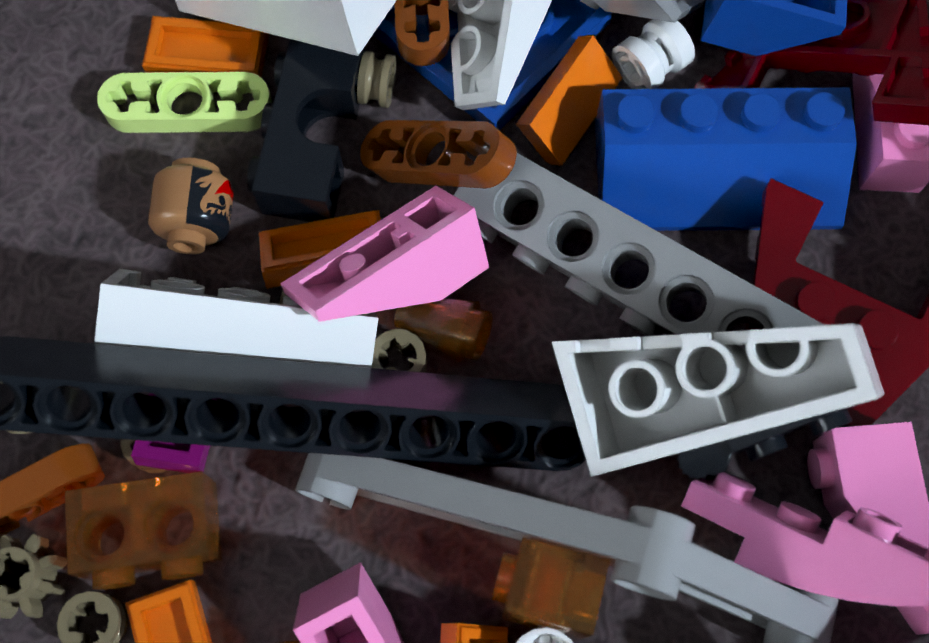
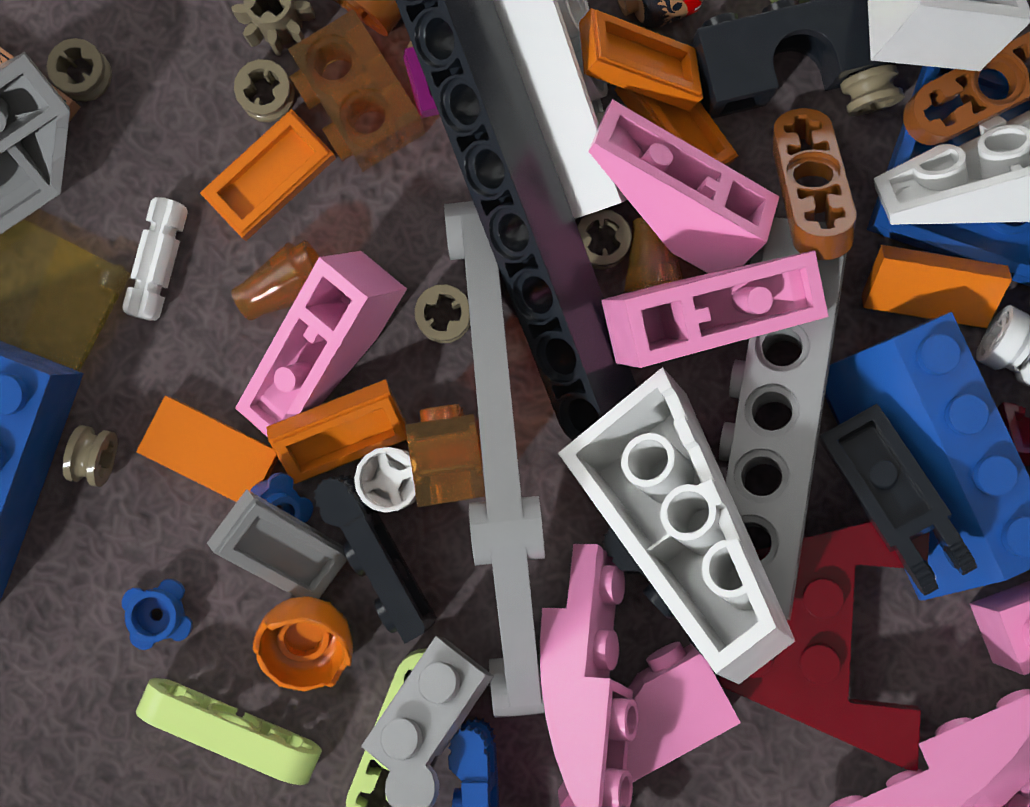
camera: 65 degrees right, 15 degrees up
(253, 250) = (639, 60): none -> orange tile
(380, 545) = (431, 299): none -> dark tan bush
(515, 283) = (714, 309): none -> bright pink slope
(747, 198) = (894, 493): none -> black hinge

